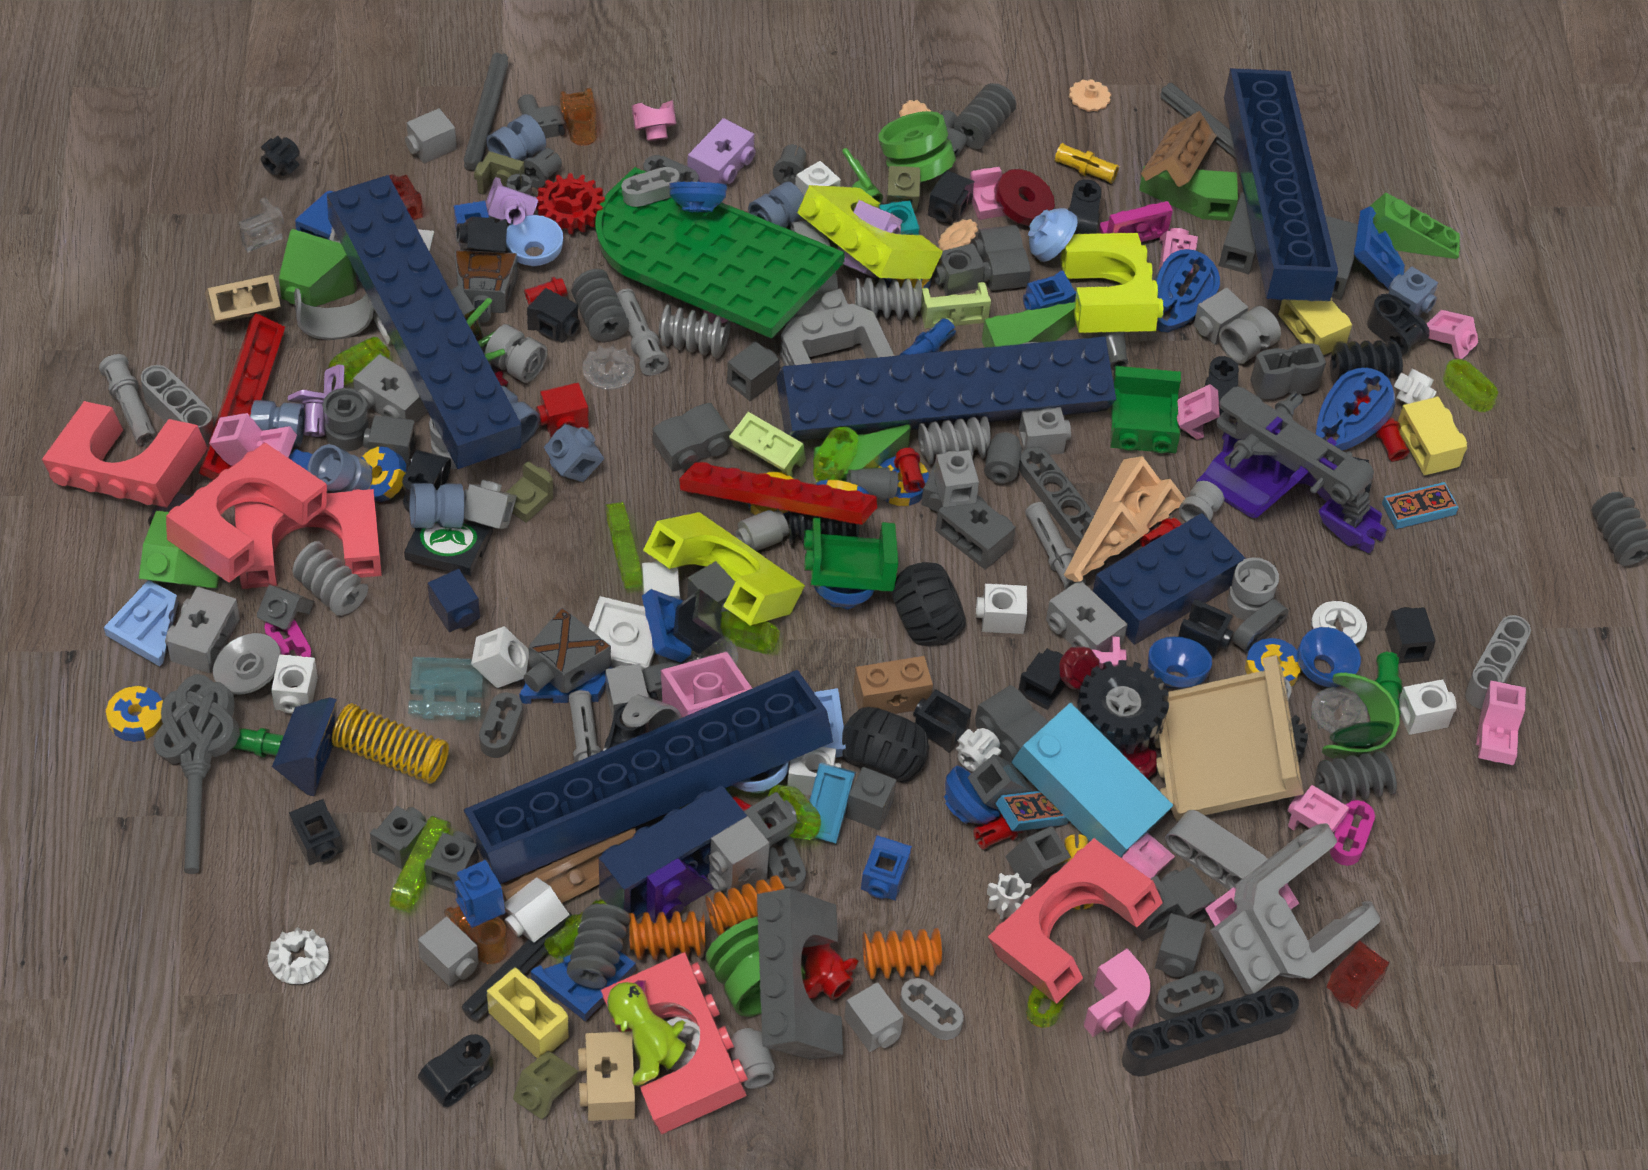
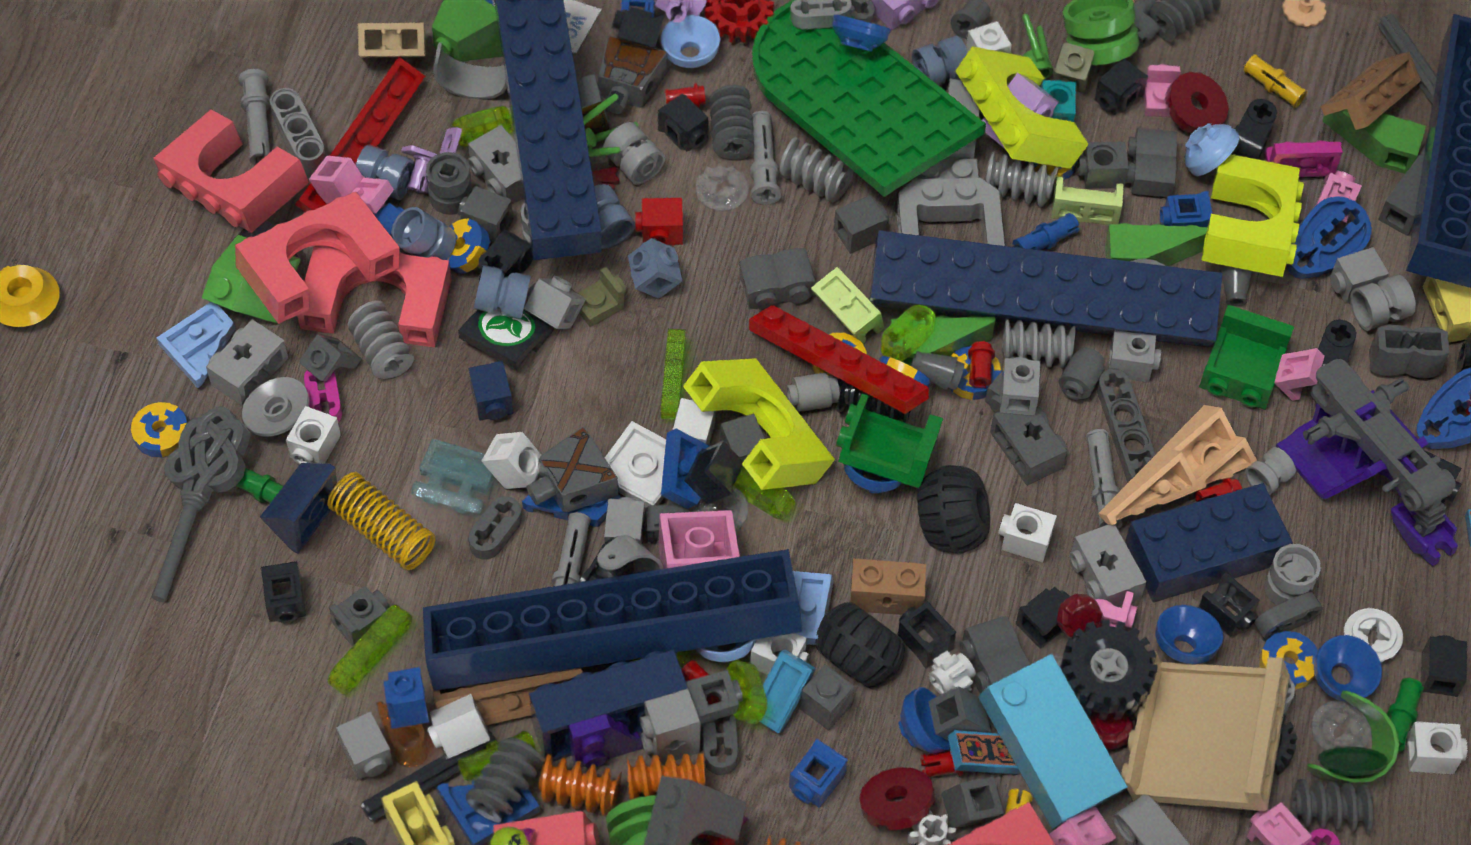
camera: 20 degrees right, 5 degrees up
(303, 969) = (227, 725): white gear -> none
(448, 857) = (388, 657): dark grey brick -> none
(958, 234) = (1115, 128): light nougat piece -> none
(975, 855) = (892, 783): none -> dark red tile

